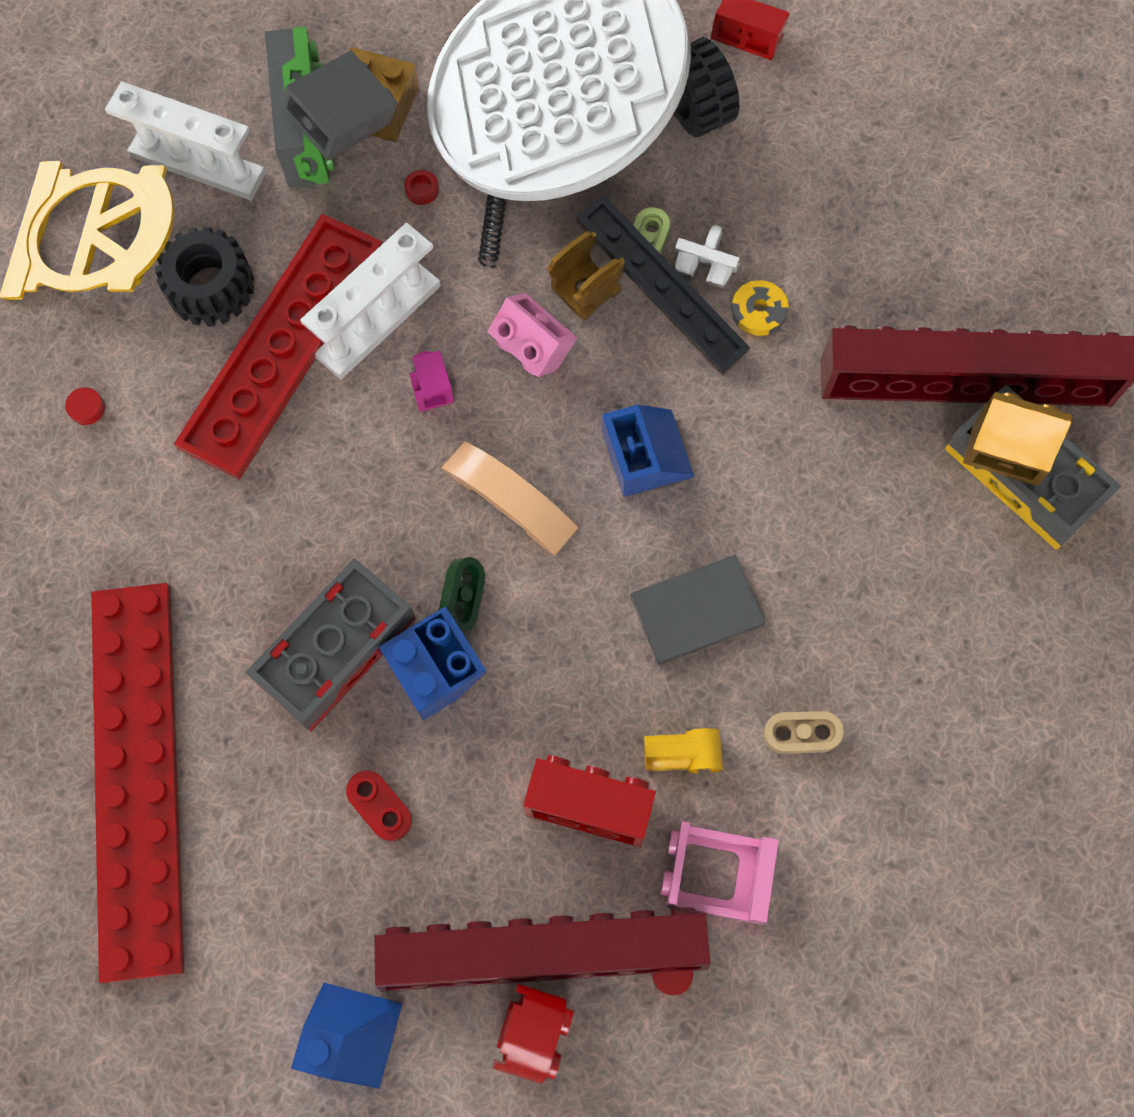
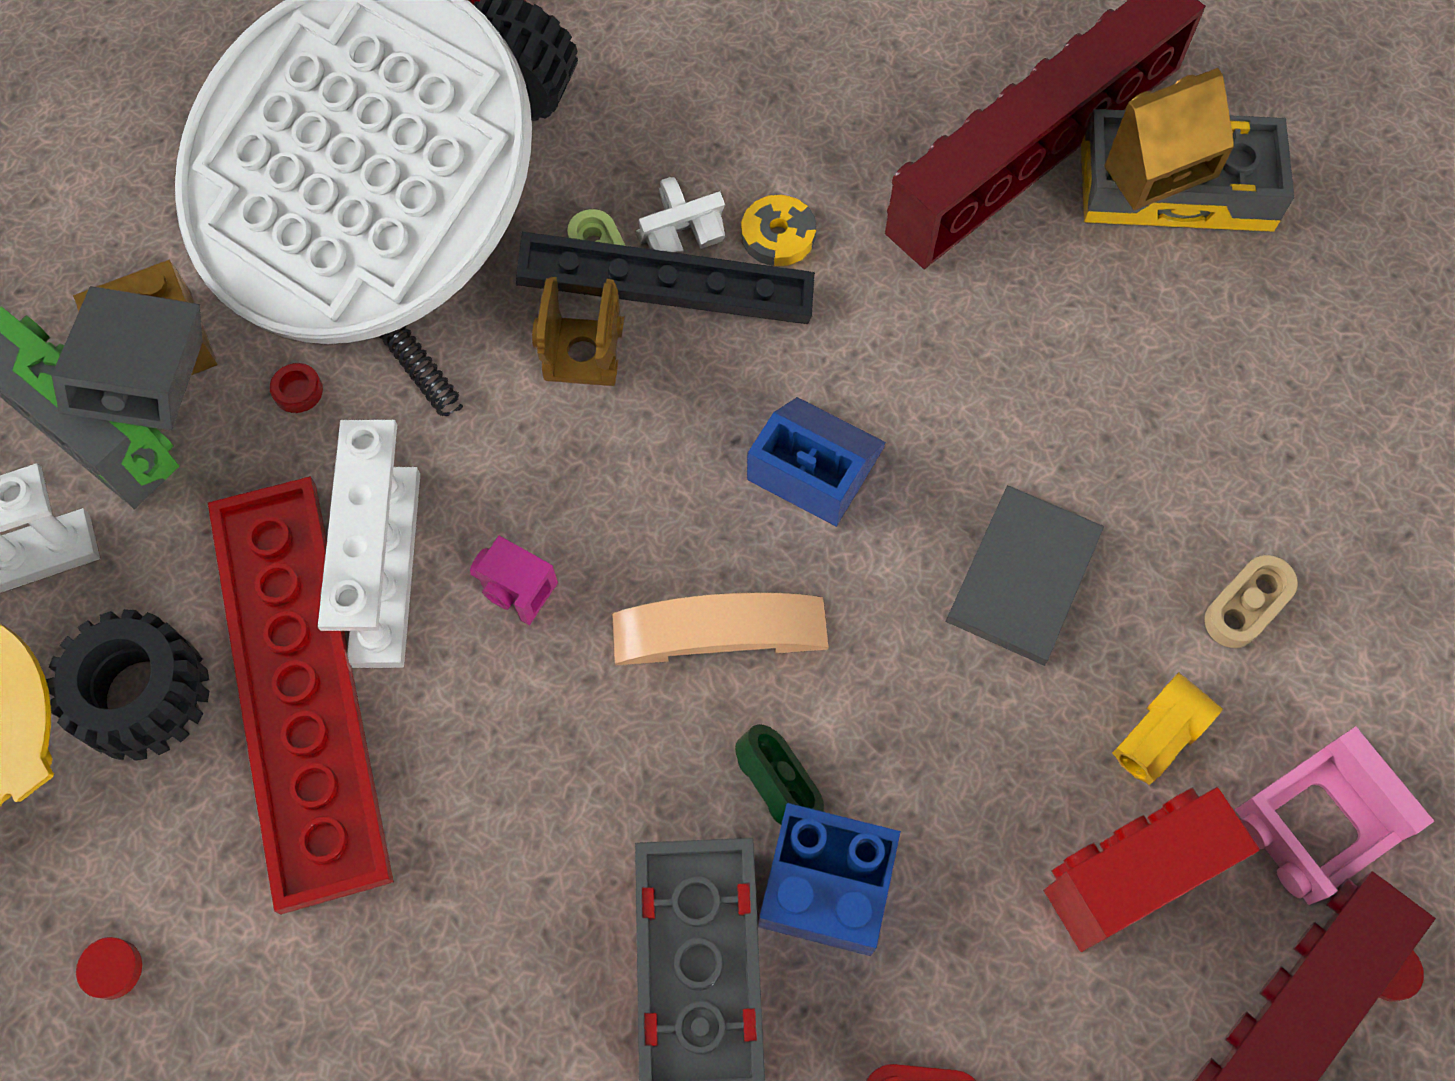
camera: 45 degrees left, 5 degrees down
(531, 335) = (580, 440): bright pink brick -> none

